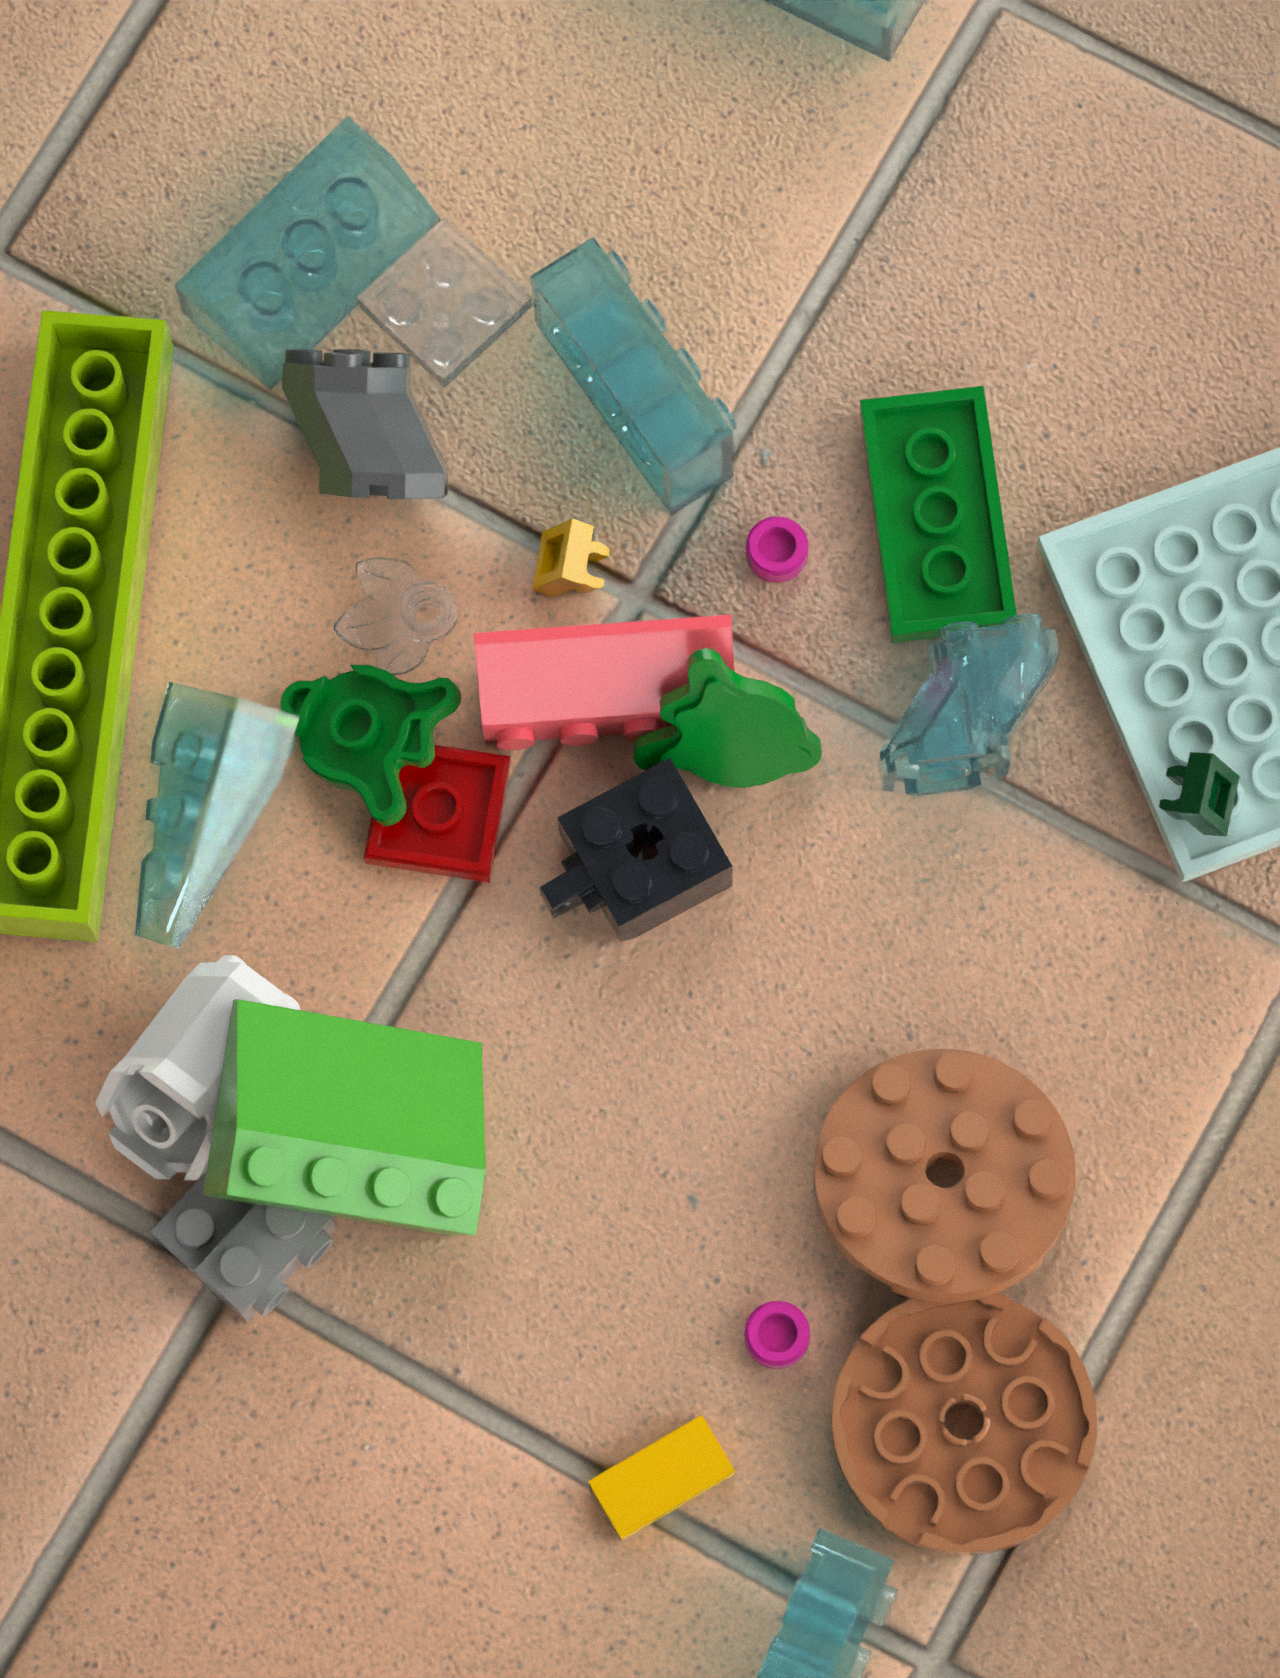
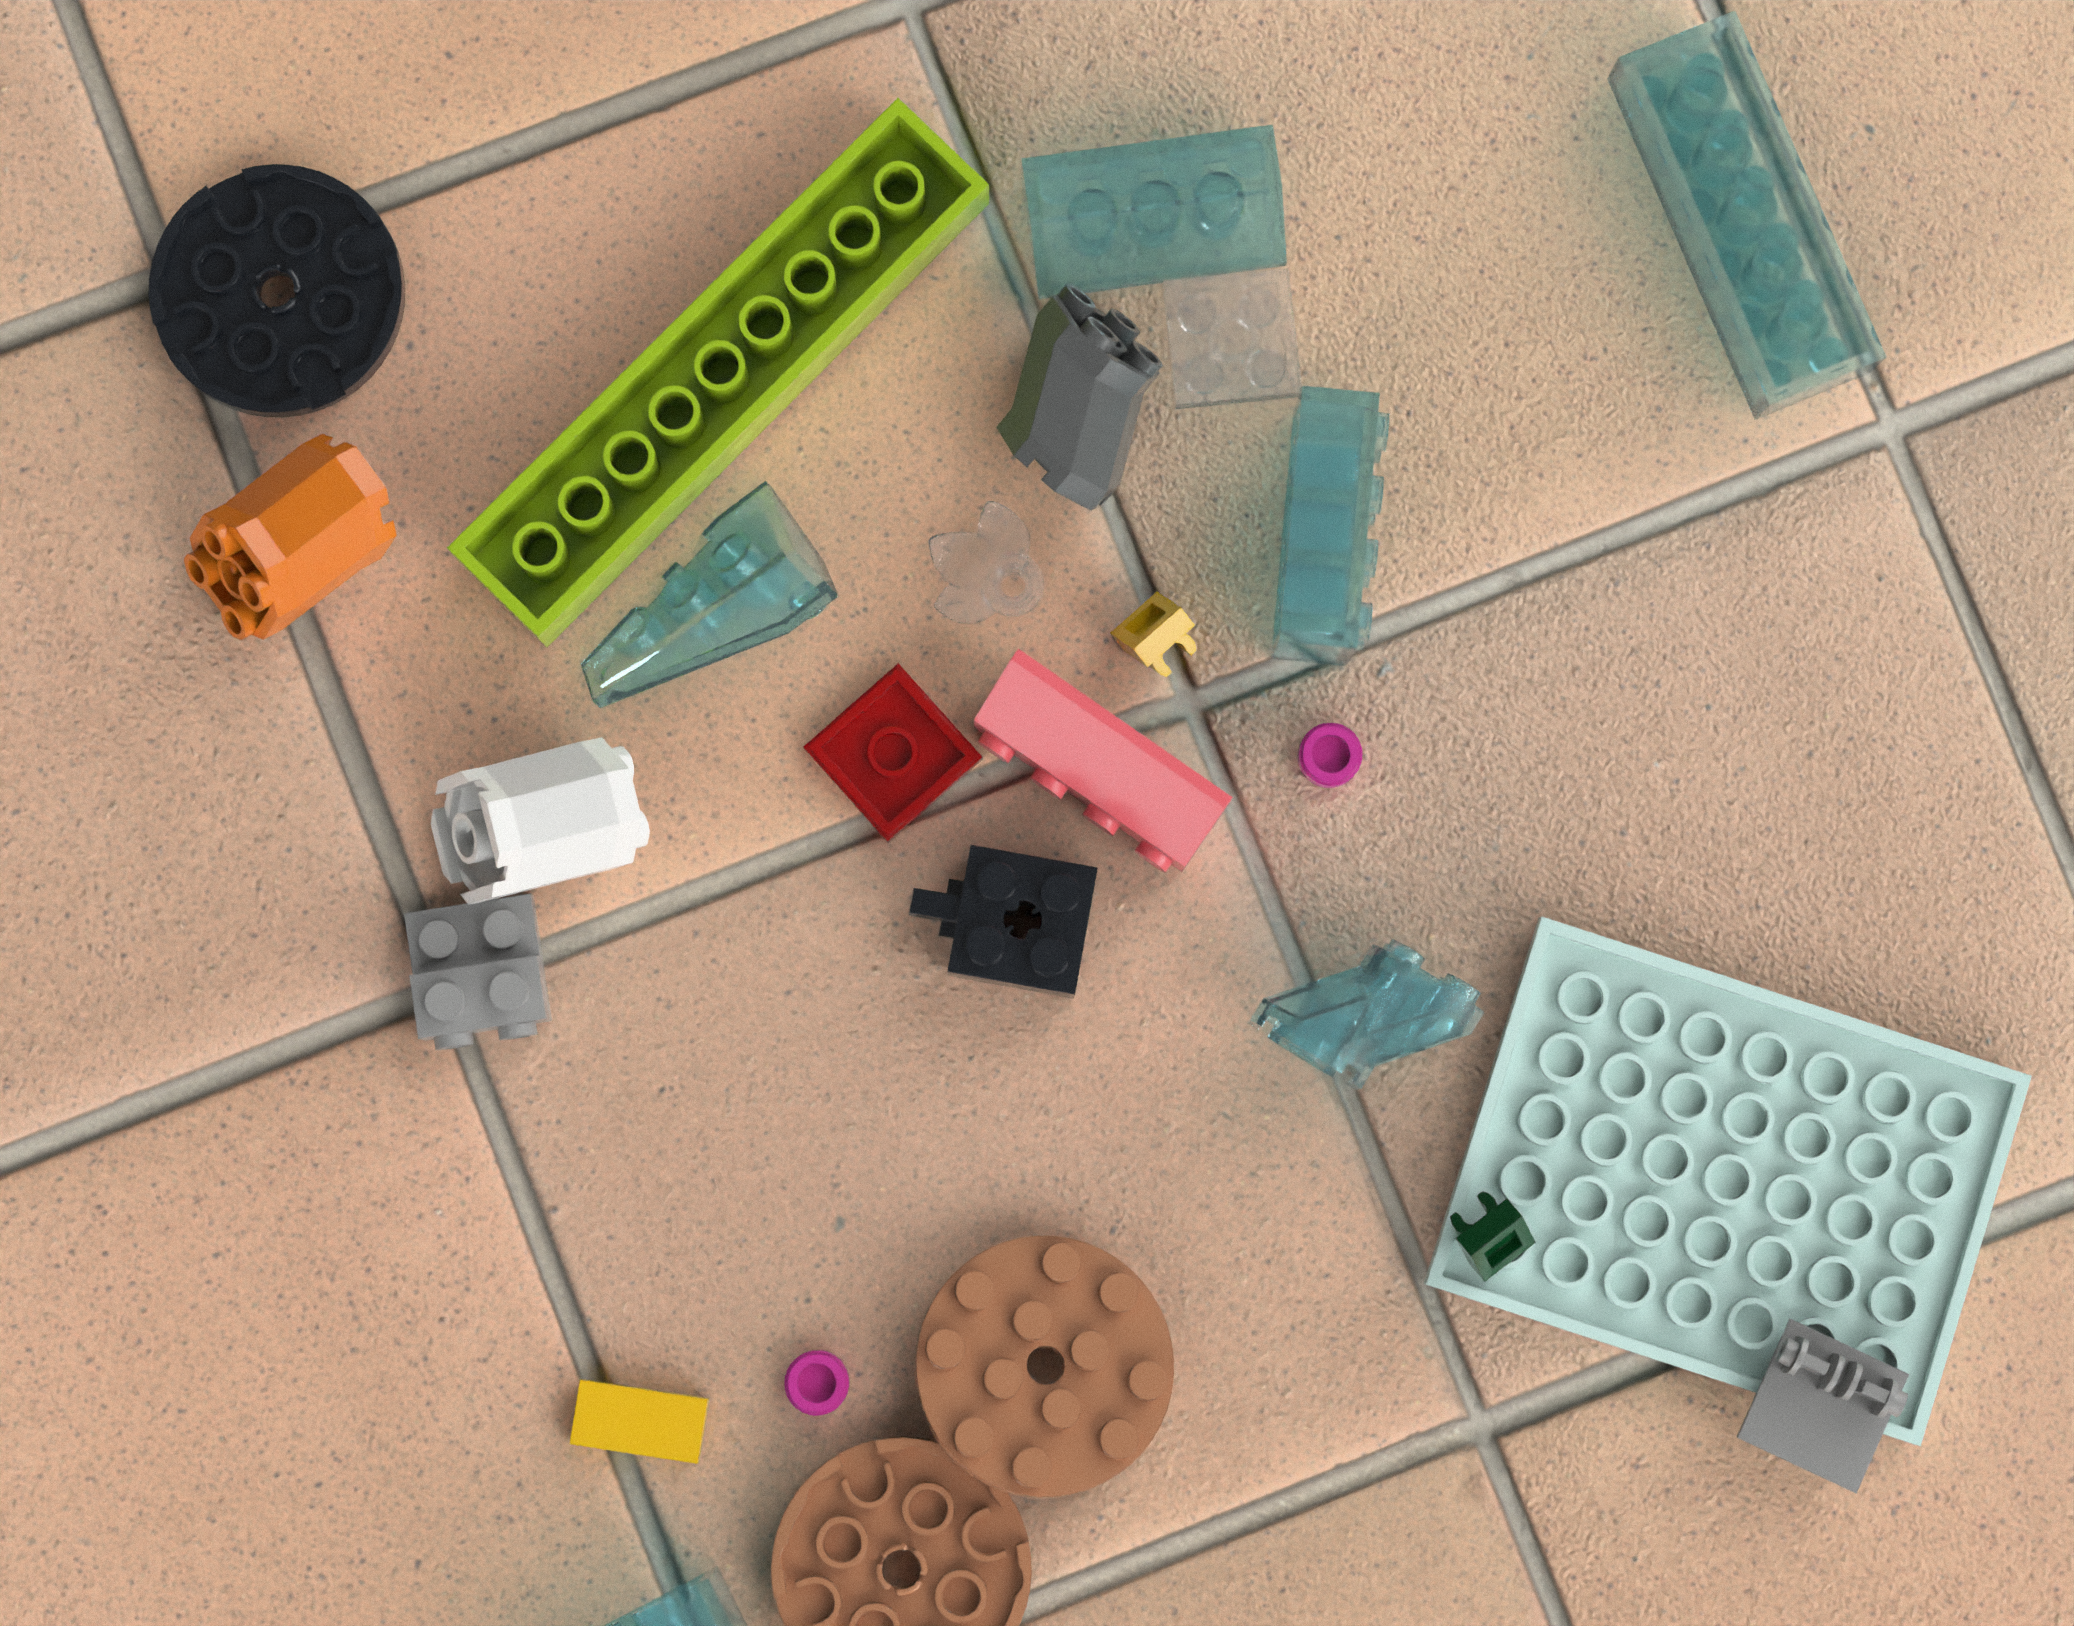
camera: 30 degrees right, 10 degrees up
(349, 1120) = (613, 960): bright green slope -> none
(367, 728) = (886, 645): green tile -> none
(729, 728) = (1164, 879): green tile -> none
(937, 511) = (1479, 831): green plate -> none

